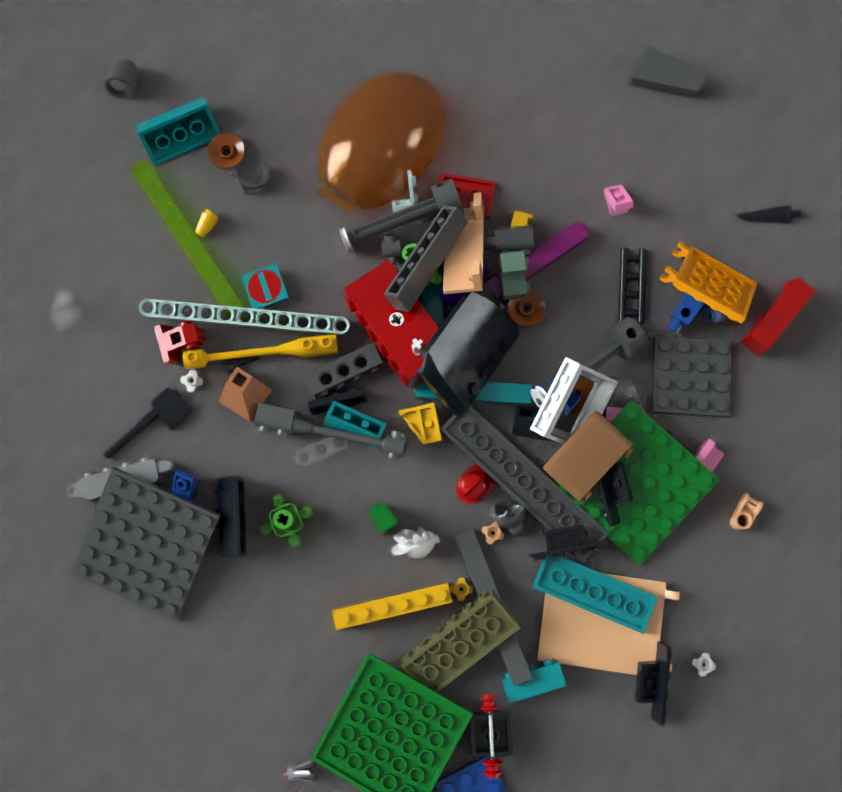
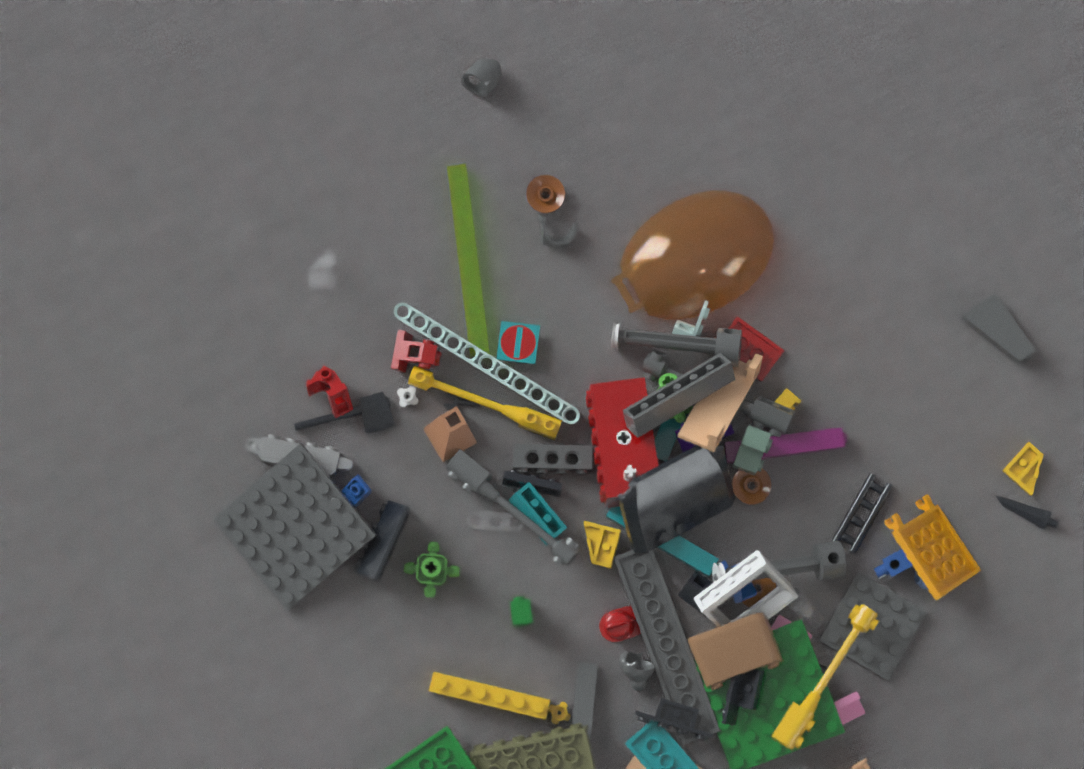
camera: 20 degrees right, 0 degrees up
(115, 402) = (337, 392): none -> red tile
(178, 131) = (510, 152): teal slope -> none
(206, 223) = (493, 254): yellow cone -> none
(414, 543) = (538, 650): white hair -> none
(491, 538) = (612, 671): light nougat plate -> none
(618, 200) = (890, 425): bright pink slope -> none
(675, 486) = (800, 717): none -> yellow bar
(748, 179) = (1025, 468): none -> yellow wing
(777, 316) = (980, 610): red brick -> none

